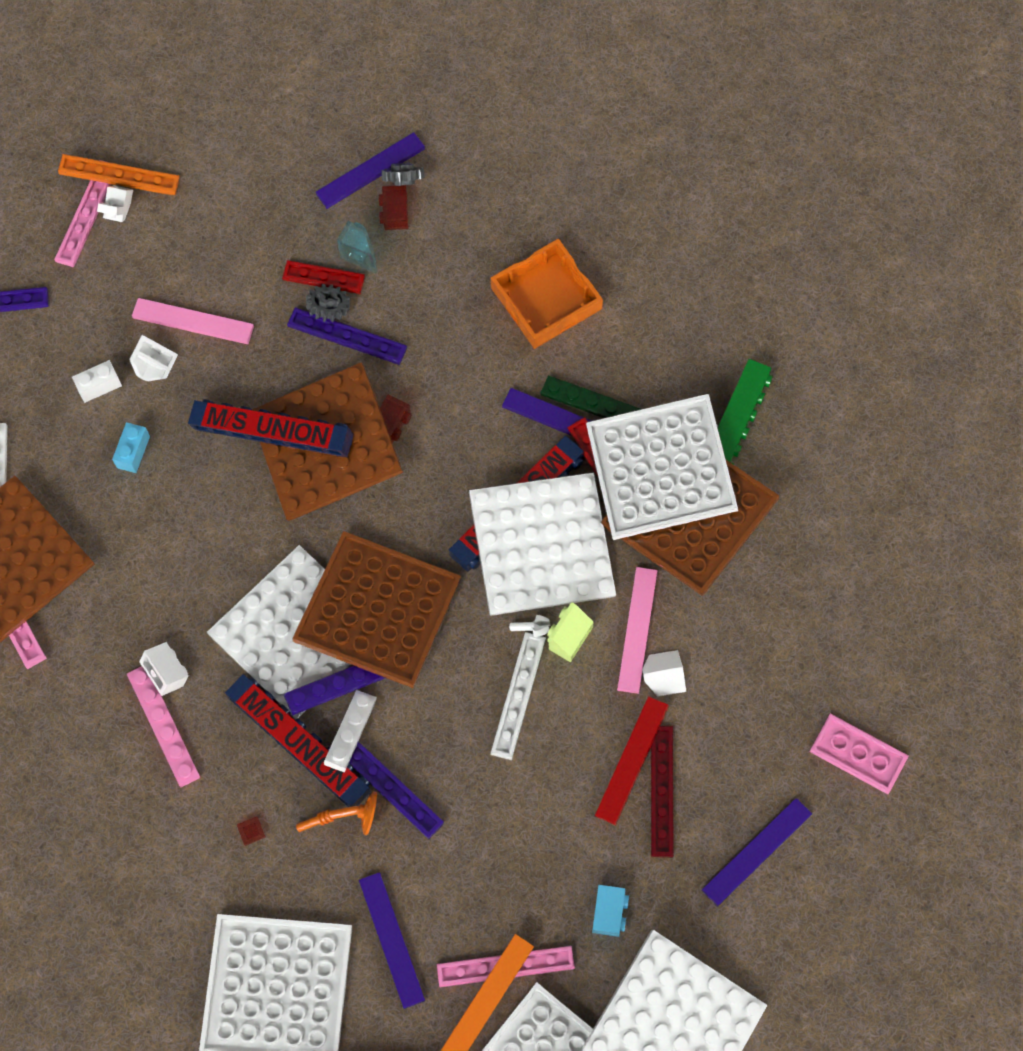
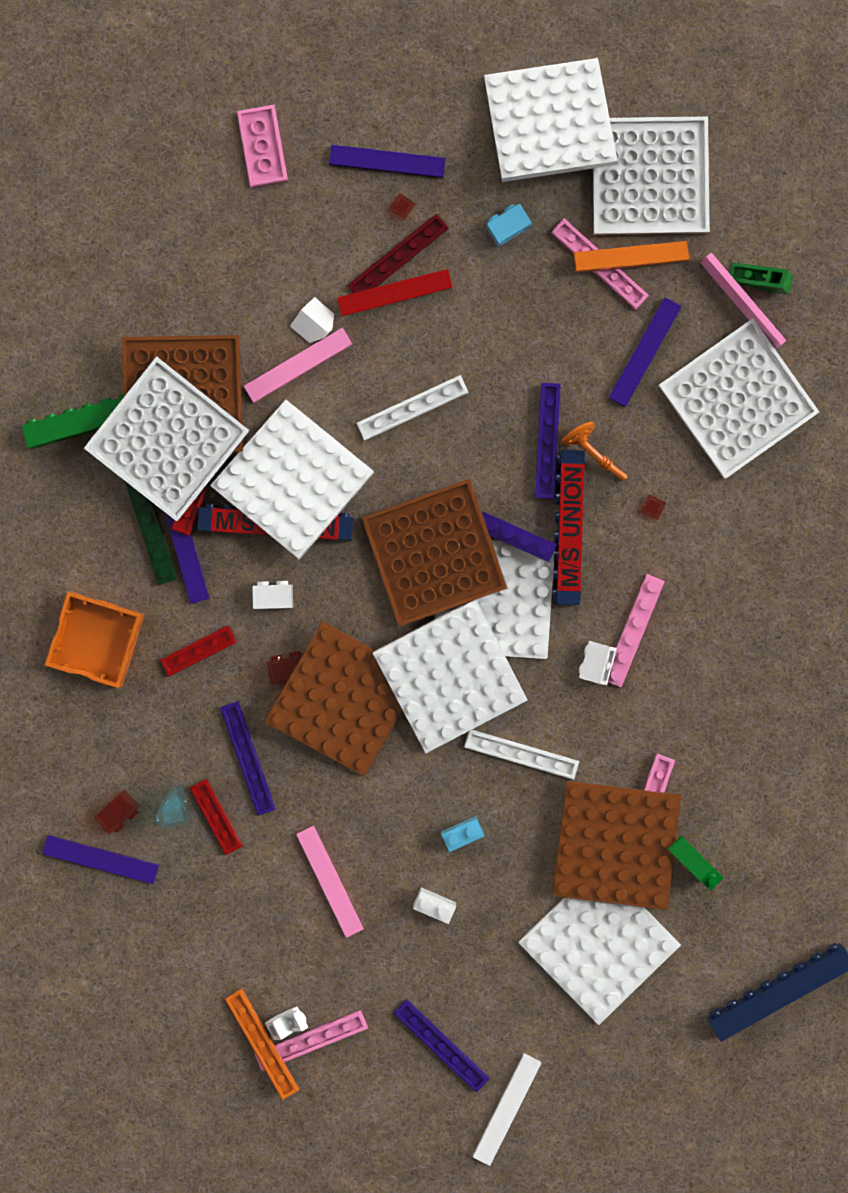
camera: 135 degrees left, 20 degrees up
(149, 548) = (521, 754): none -> white tile
(151, 360) = (385, 881): white slope -> none
(265, 539) = (450, 675): none -> white plate
(271, 428) = (368, 744): brick -> none
(327, 302) = (235, 801): dark grey gear -> none
(350, 731) = (533, 497): white plate -> none
(402, 174) = (86, 828): dark grey gear -> none
(459, 454) = (272, 596): none -> white brick
(467, 365) = (198, 651): none -> red tile
(539, 626) = (355, 437): white bar -> none
(570, 632) = (341, 406): yellowish green slope -> none
(705, 831) = (402, 206): none -> clear red tile

